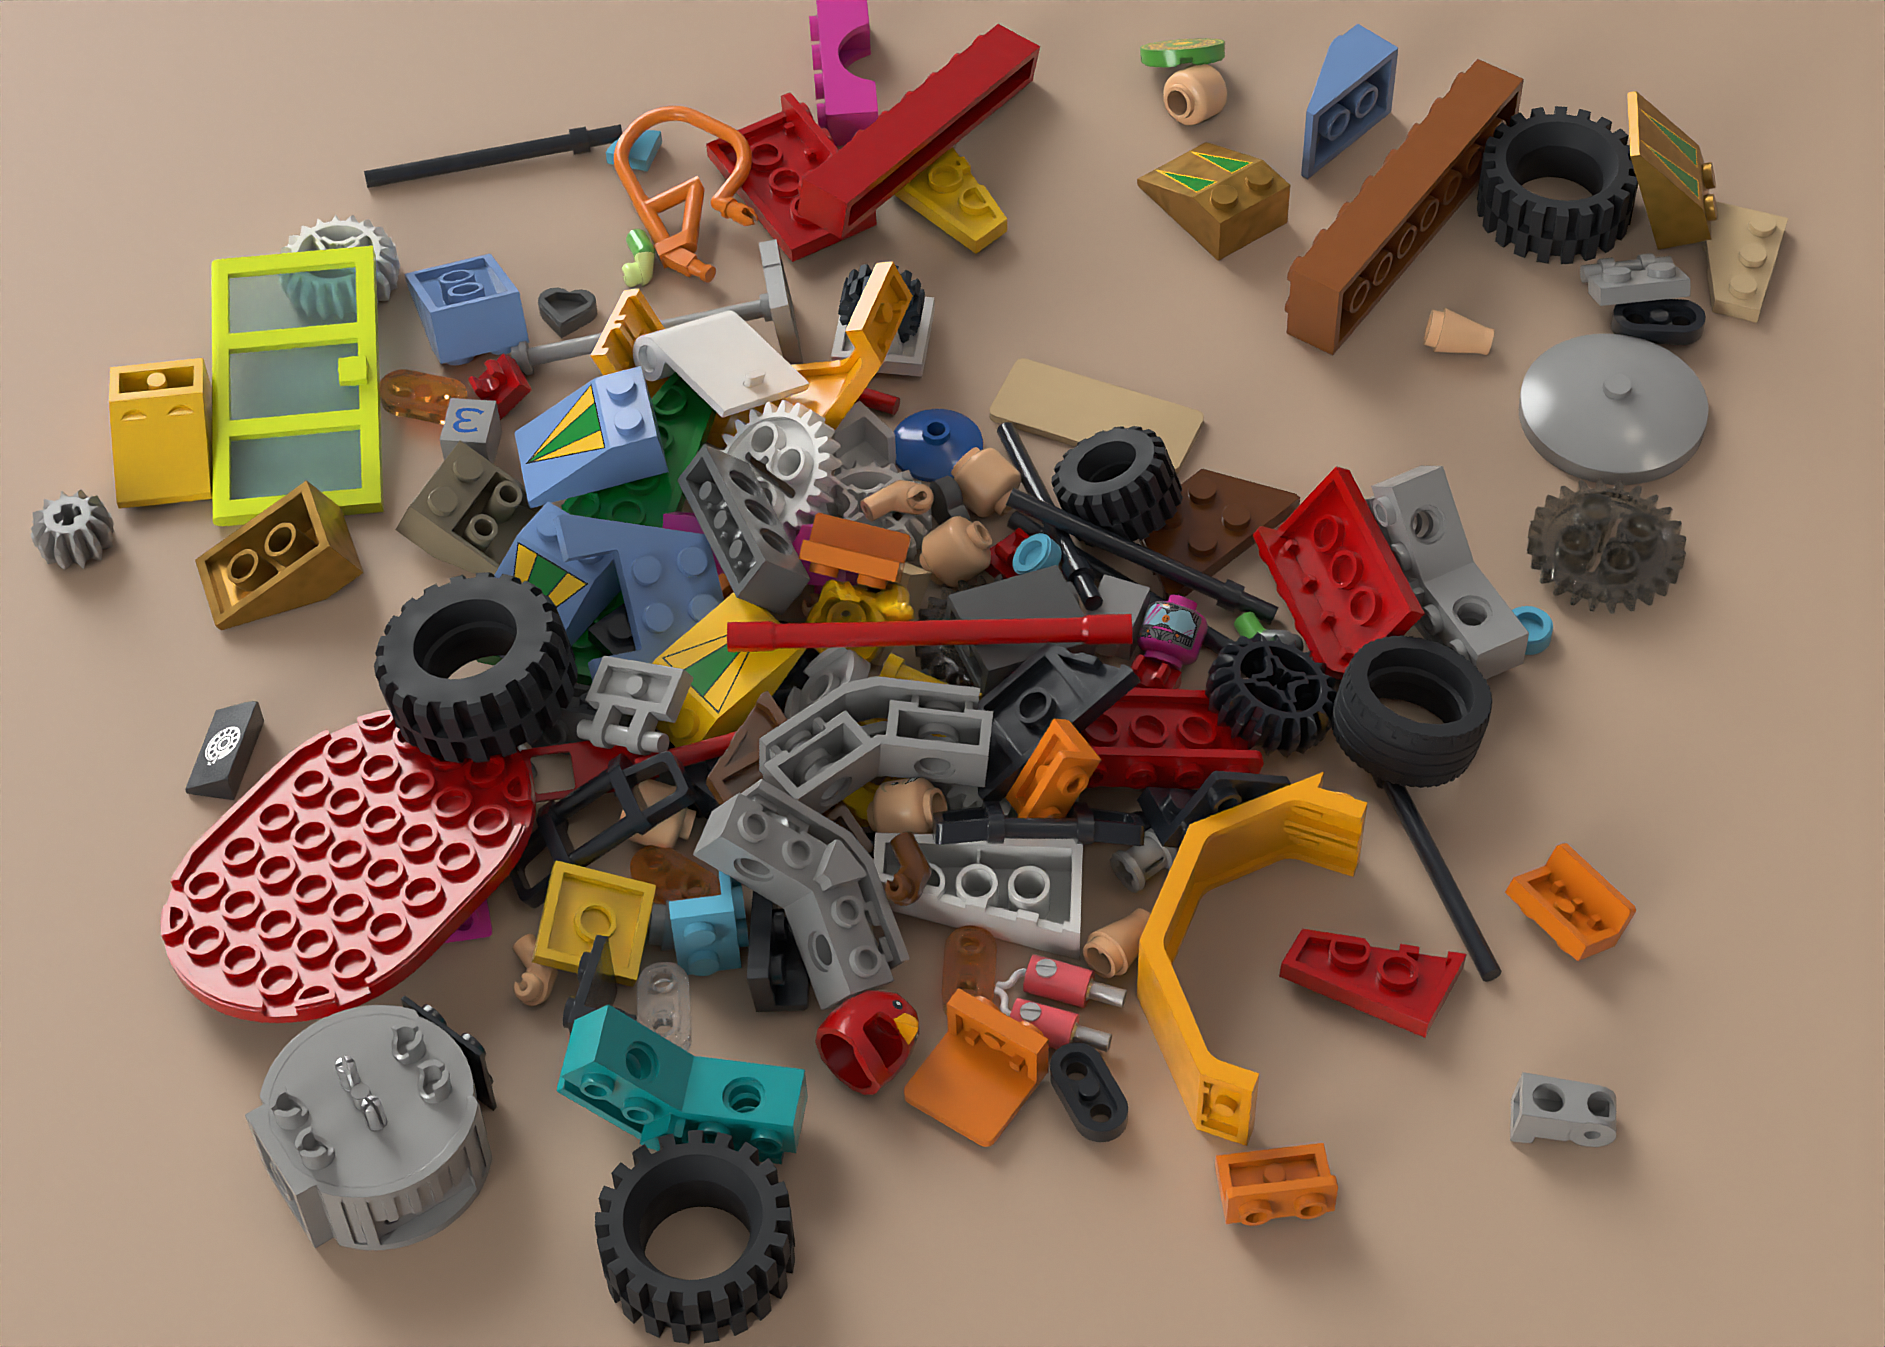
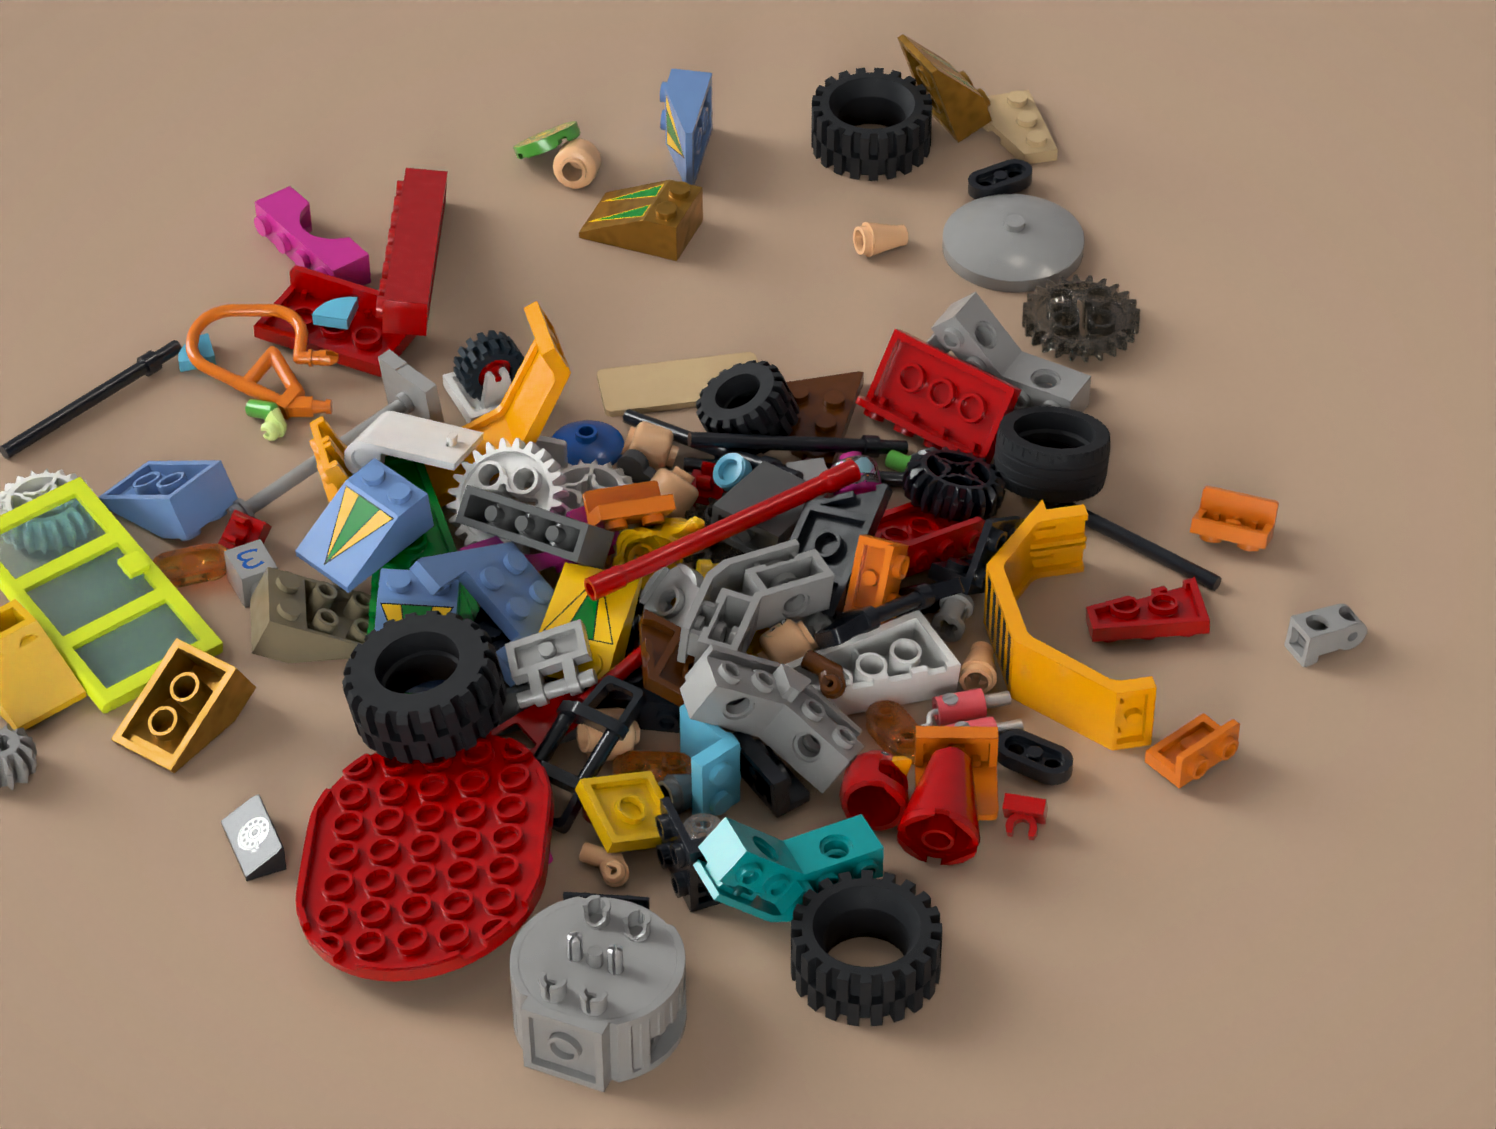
camera: 35 degrees left, 10 degrees down
(567, 310) = (245, 471): dark grey tile -> none
(791, 165) = (336, 313): none -> medium azure tile
(899, 497) = (614, 472): light nougat arm -> none
(915, 1105) = (942, 811): none -> red cone
(956, 202) = (471, 295): yellow wing -> none
(1019, 1157) = (1024, 809): none -> red tile
(1398, 209) = (783, 174): dark orange brick -> none
(1634, 280) = (967, 160): light grey plate -> none

